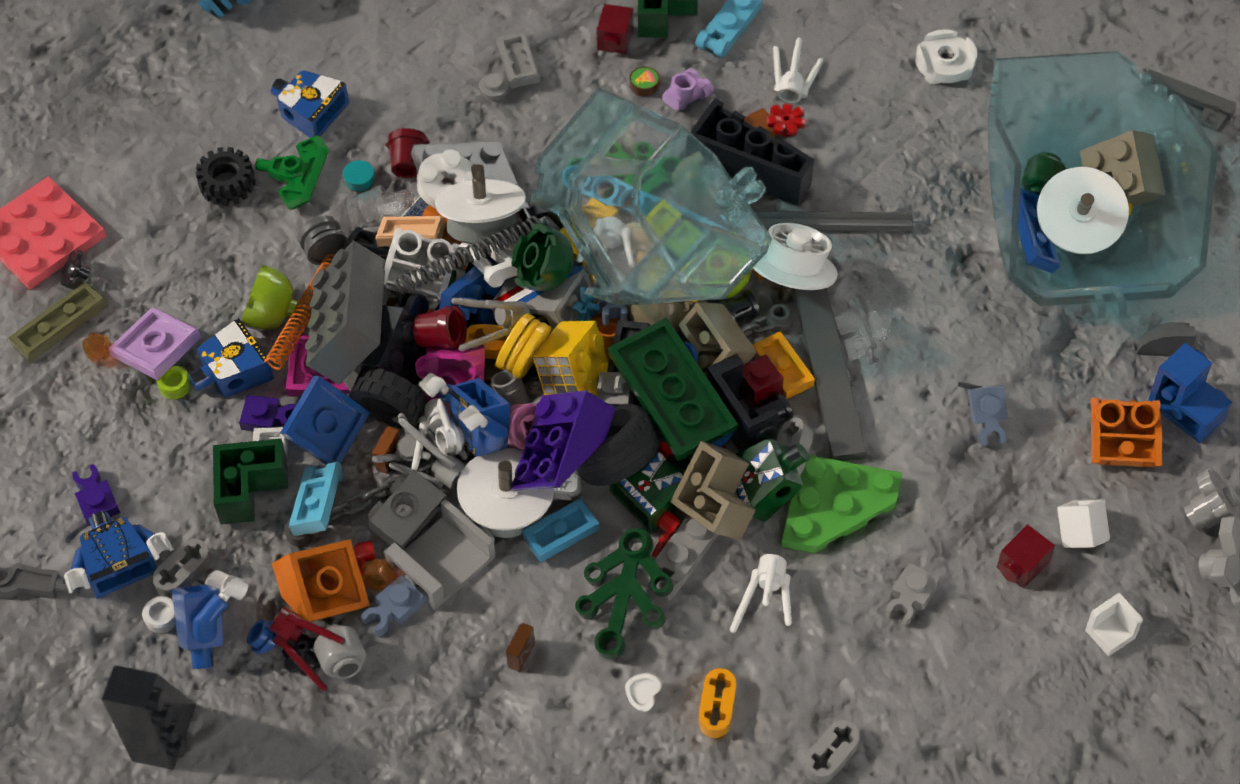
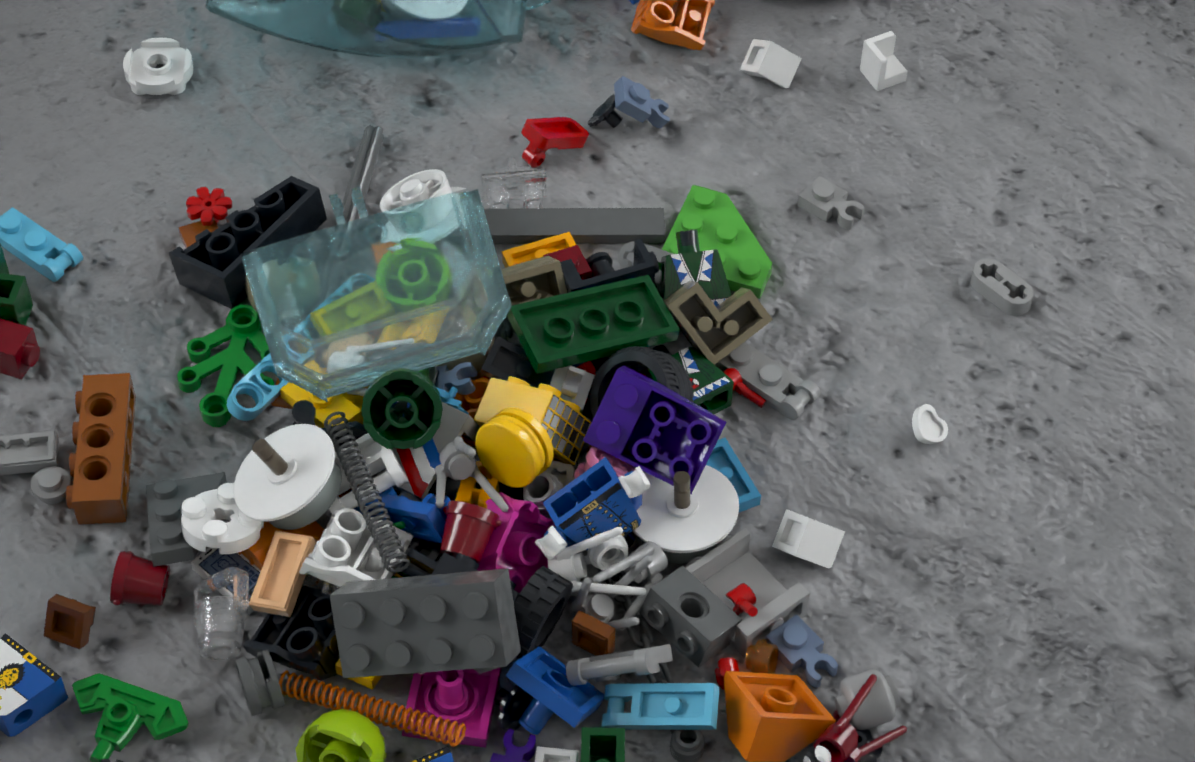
camera: 85 degrees left, 5 degrees down
(354, 467) = (610, 666): none -> light grey plate
(358, 175) = (150, 646): teal tile -> none
(371, 122) = (68, 621): none -> reddish brown tile
(429, 549) = (744, 599): none -> red hand
(502, 598) = (808, 539): none -> white panel
(520, 647) = (872, 525): reddish brown tile -> none
(524, 107) = (103, 449): none -> dark orange brick
(624, 588) = (810, 422): dark green plant -> none
(644, 81) = (95, 334): tile -> none
(687, 88) = (128, 291): lavender plate -> none
(709, 701) = (943, 368): light orange beam -> none
(770, 576) = (802, 302): white plant -> none
(792, 85) = (152, 196): white plant -> none
(932, 351) = (551, 133): none -> red piece
(1025, 556) = (803, 109): dark red brick -> none

